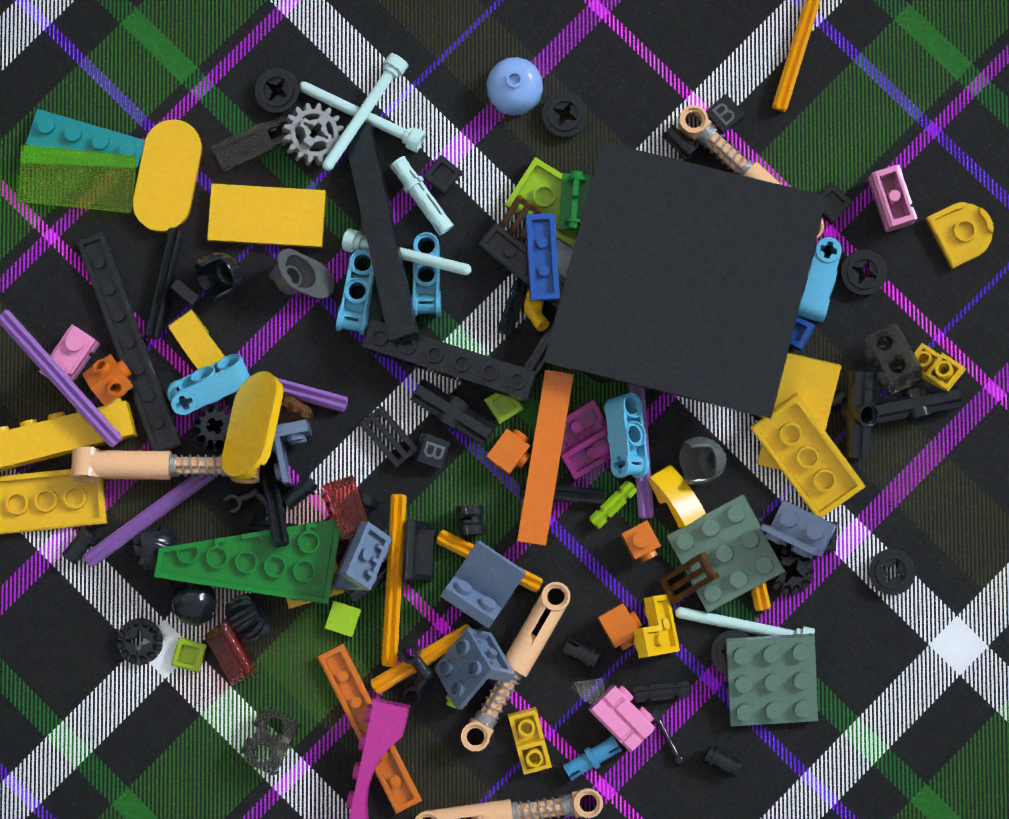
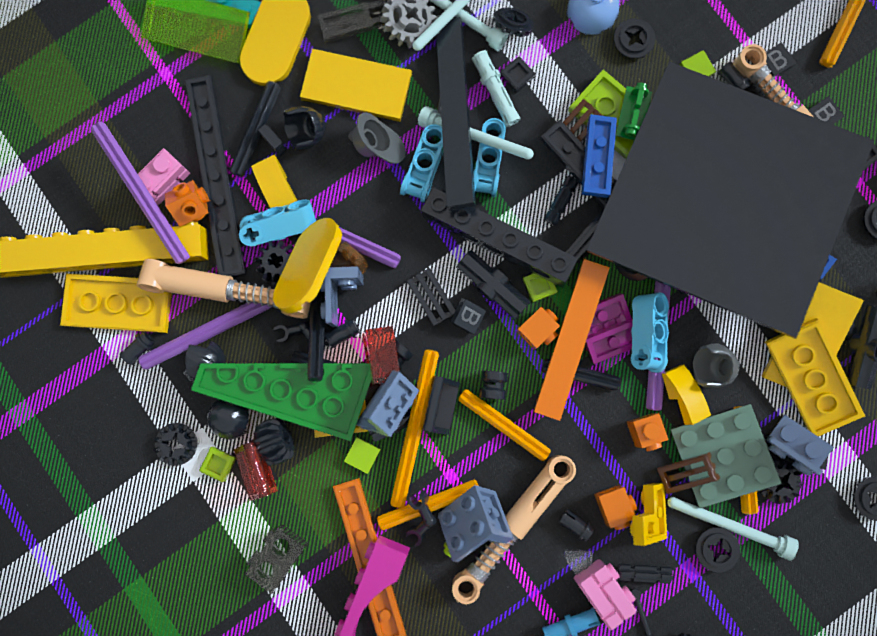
camera: 15 degrees right, 0 degrees up
(438, 115) = (513, 21): none -> black gear
(483, 584) = (496, 447): sand blue bracket -> none
(529, 740) = (515, 598): yellow slope -> none
(533, 311) = (580, 206): yellow arm -> none
(613, 504) = (625, 392): lime axle -> none
(639, 135) = (700, 64): none -> lime tile
(772, 679) = (752, 582): sand green plate -> none
(784, 166) = (827, 111): none -> black tile
(820, 281) = (853, 220): medium azure piece -> none

